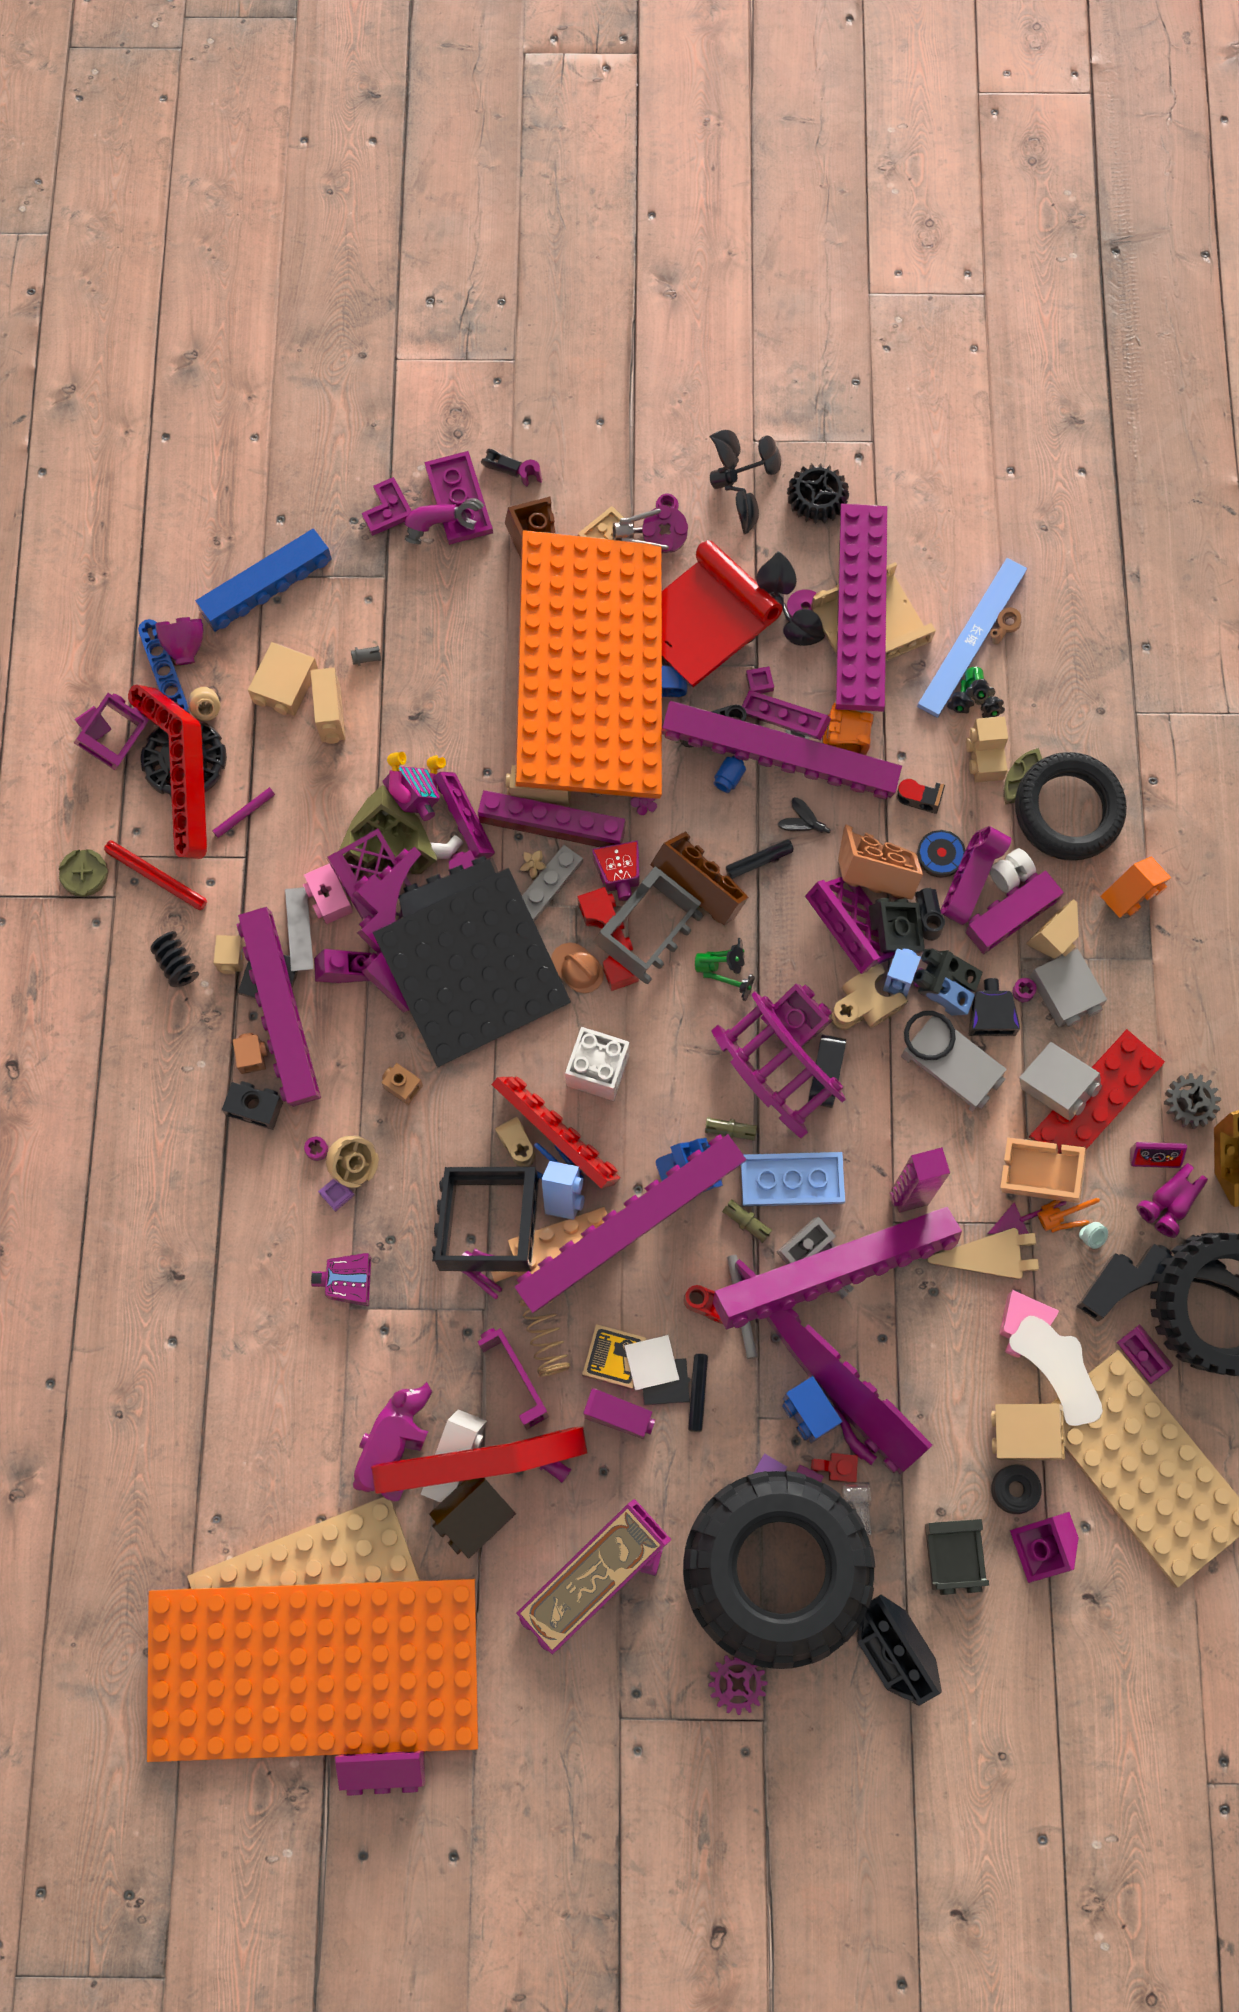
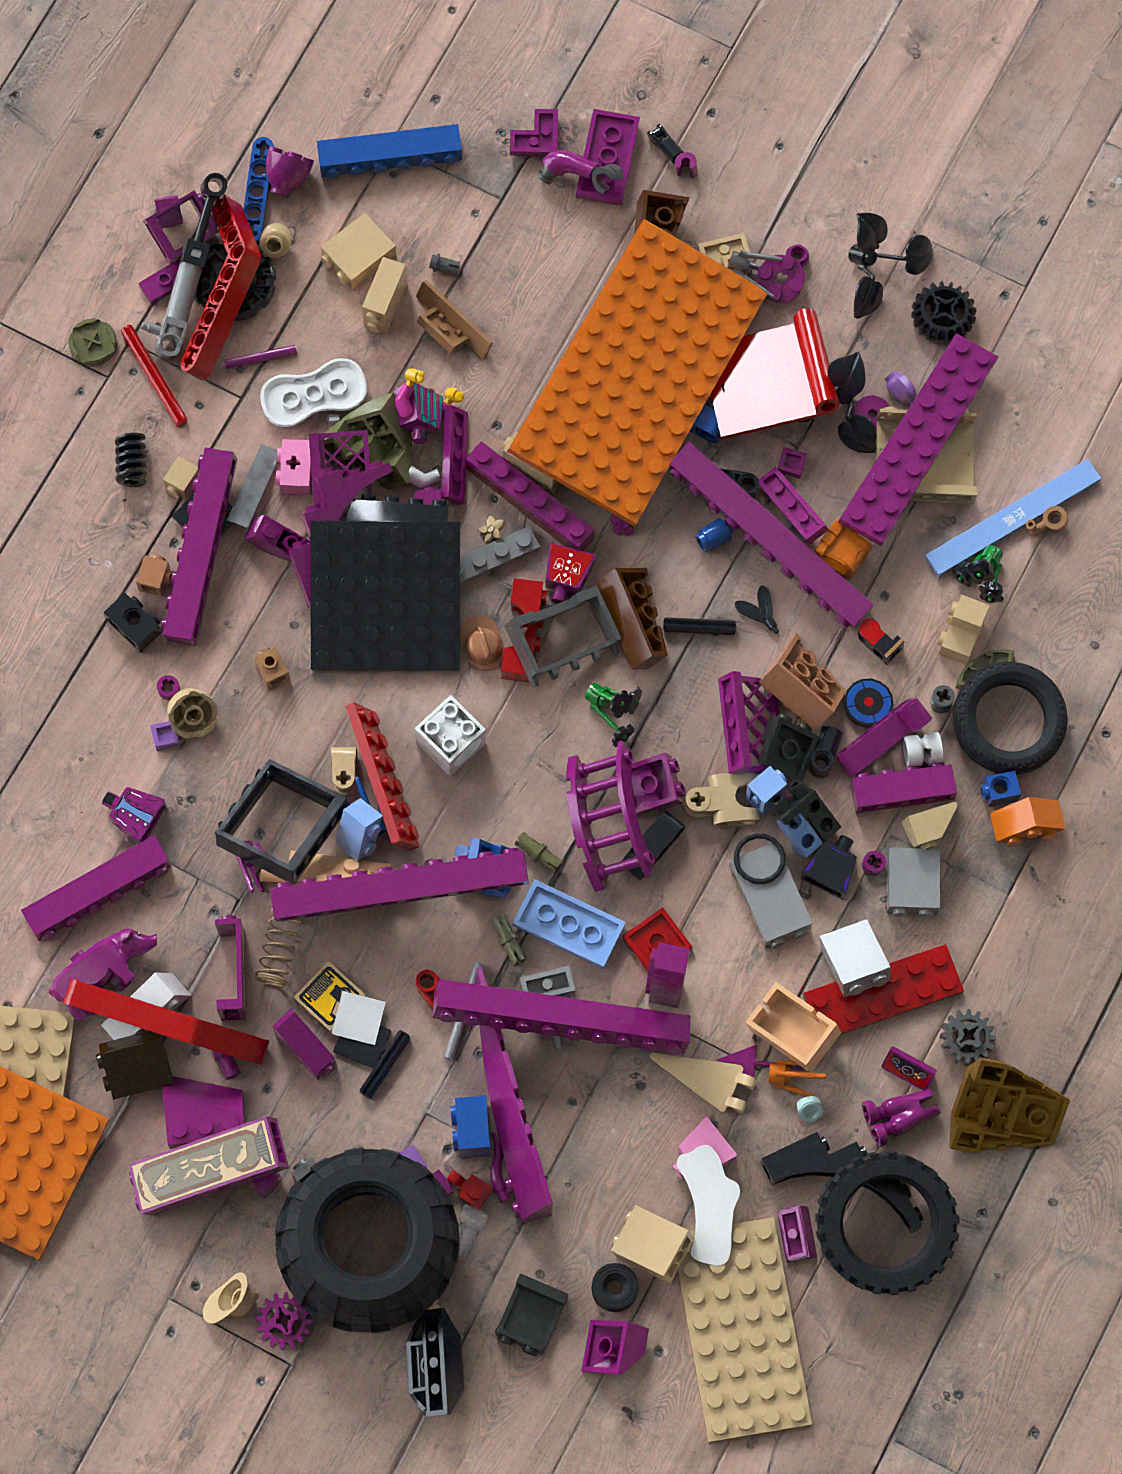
camera: 25 degrees right, 0 degrees up
(122, 788) = (160, 283): none -> magenta plate
(139, 759) = (190, 268): none -> light grey piece
(294, 834) = (293, 398): none -> white plate
(339, 835) = (332, 419): none -> light grey piece
(347, 1368) = (96, 888): none -> magenta brick
(398, 703) = (448, 324): none -> medium nougat bracket
(556, 1526) = (200, 1110): none -> magenta wedge
(676, 1691) = (231, 1299): none -> tan piece
(682, 1533) = (302, 1168): none -> flat silver plate
(818, 573) = (901, 387): none -> medium lavender plant
(877, 1155) = (651, 931): none -> red tile
(1008, 815) = (944, 691): none -> dark grey bush
(1100, 862) = (1008, 781): none -> blue brick

